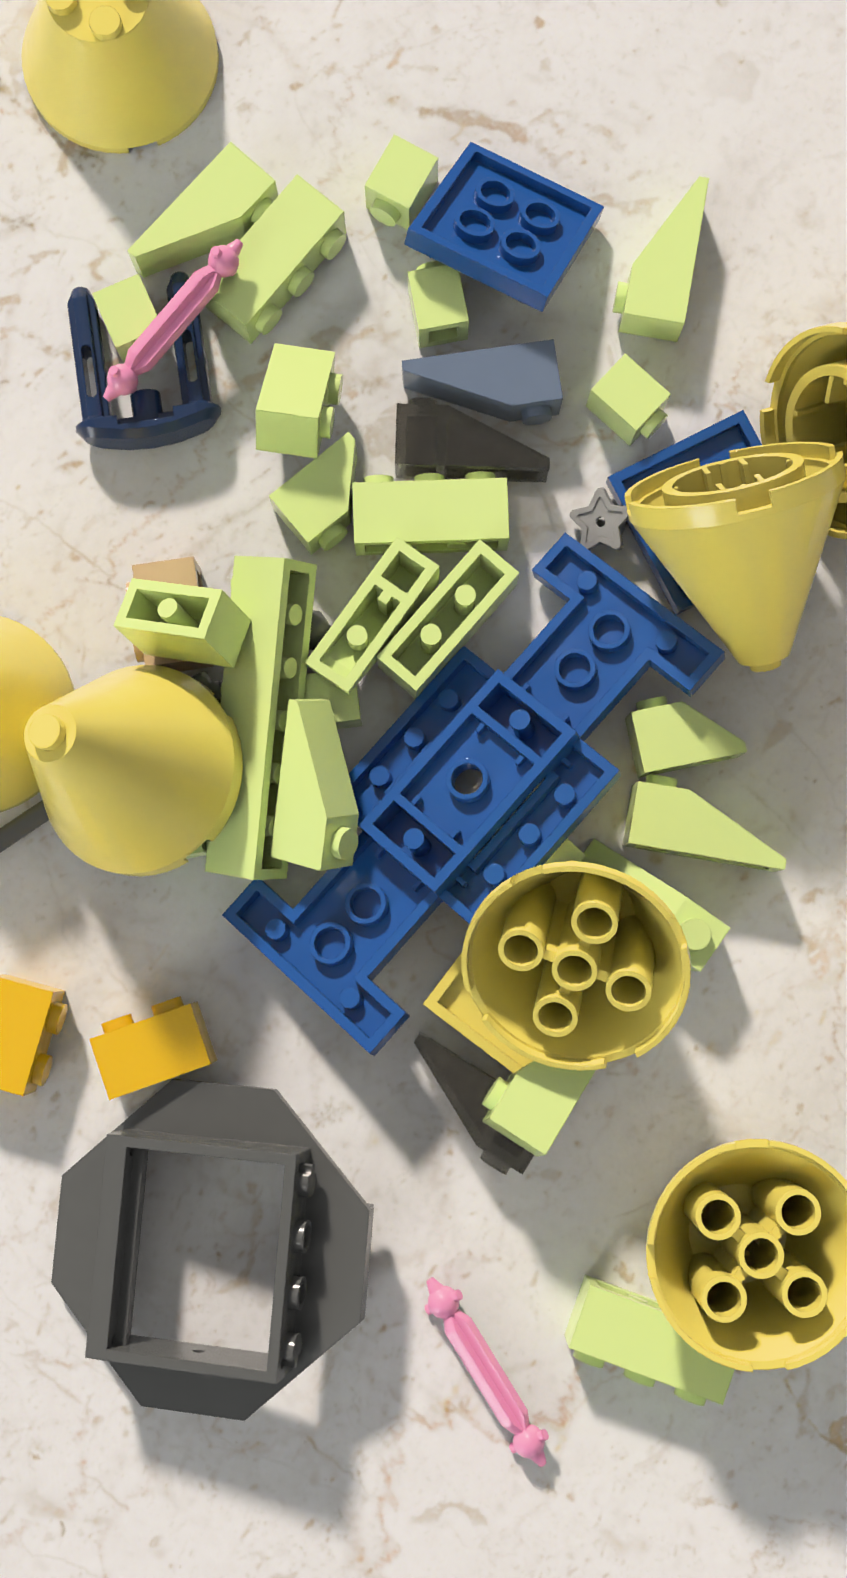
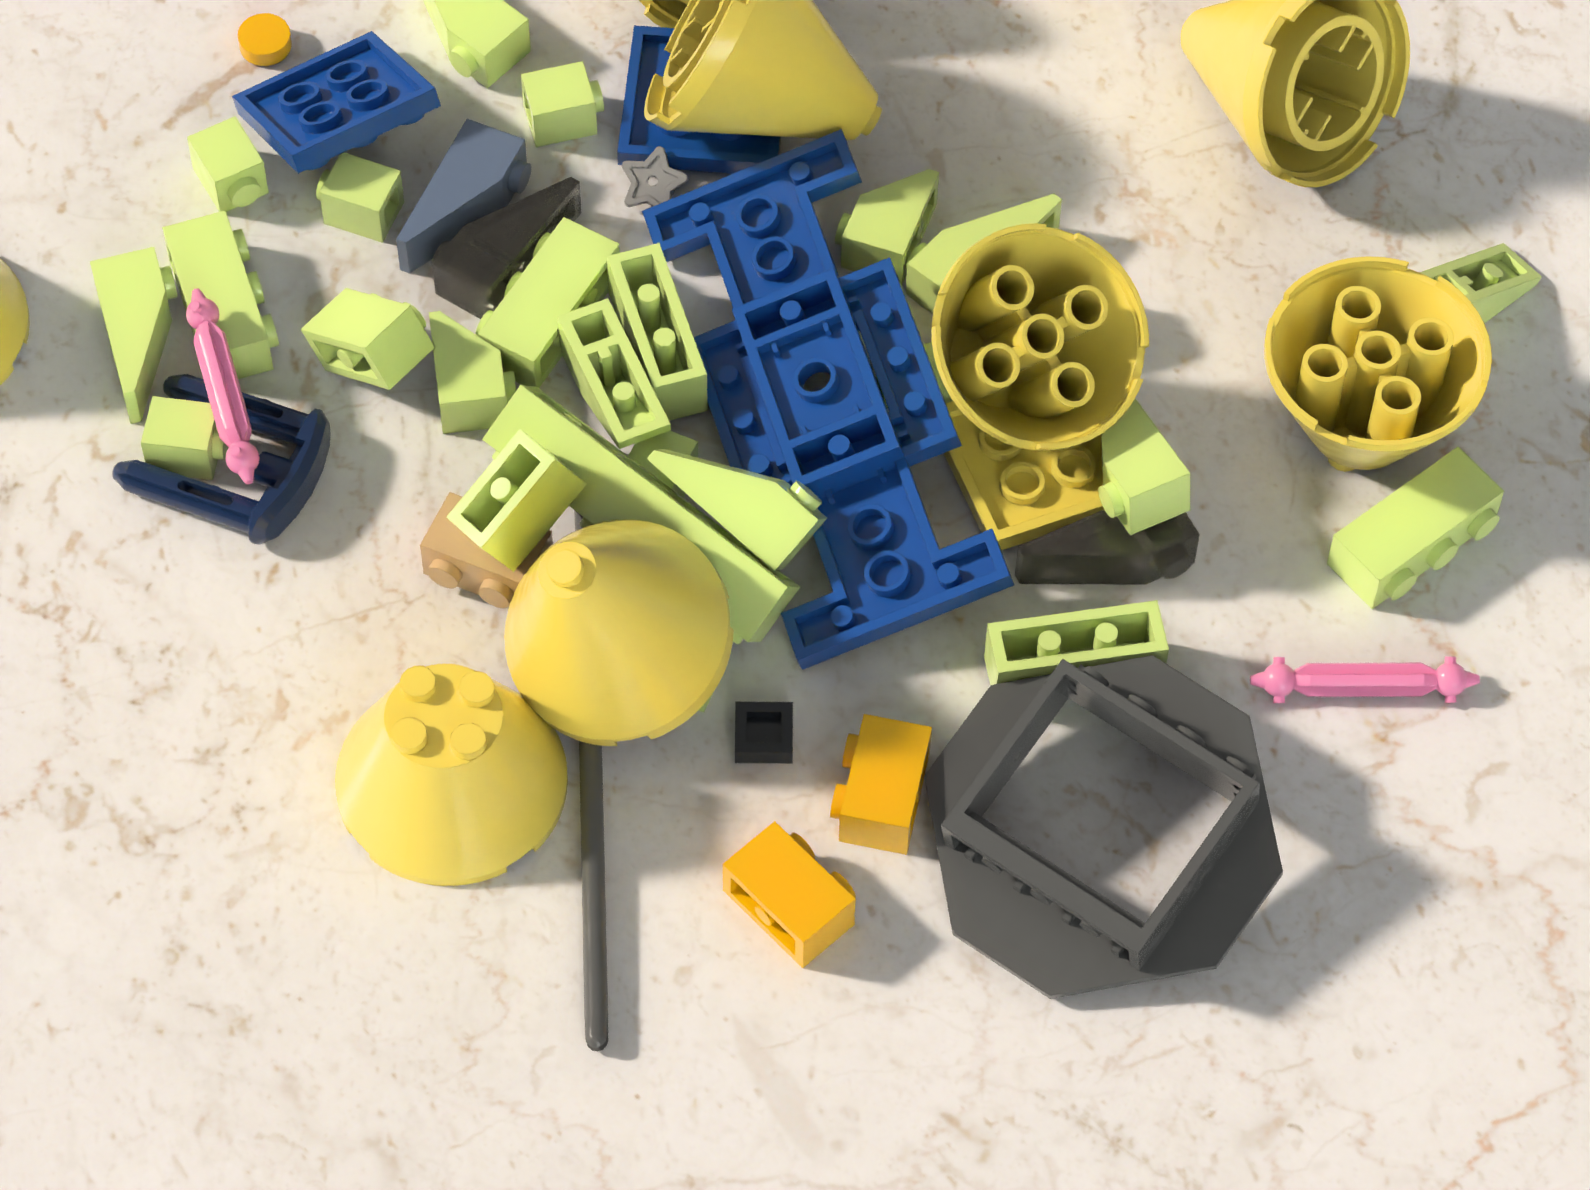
camera: 60 degrees left, 25 degrees down
(152, 924) = (764, 732): none -> black tile
(354, 1137) = (1084, 637): none -> yellowish green brick
(546, 129) = (264, 39): none -> yellow tile

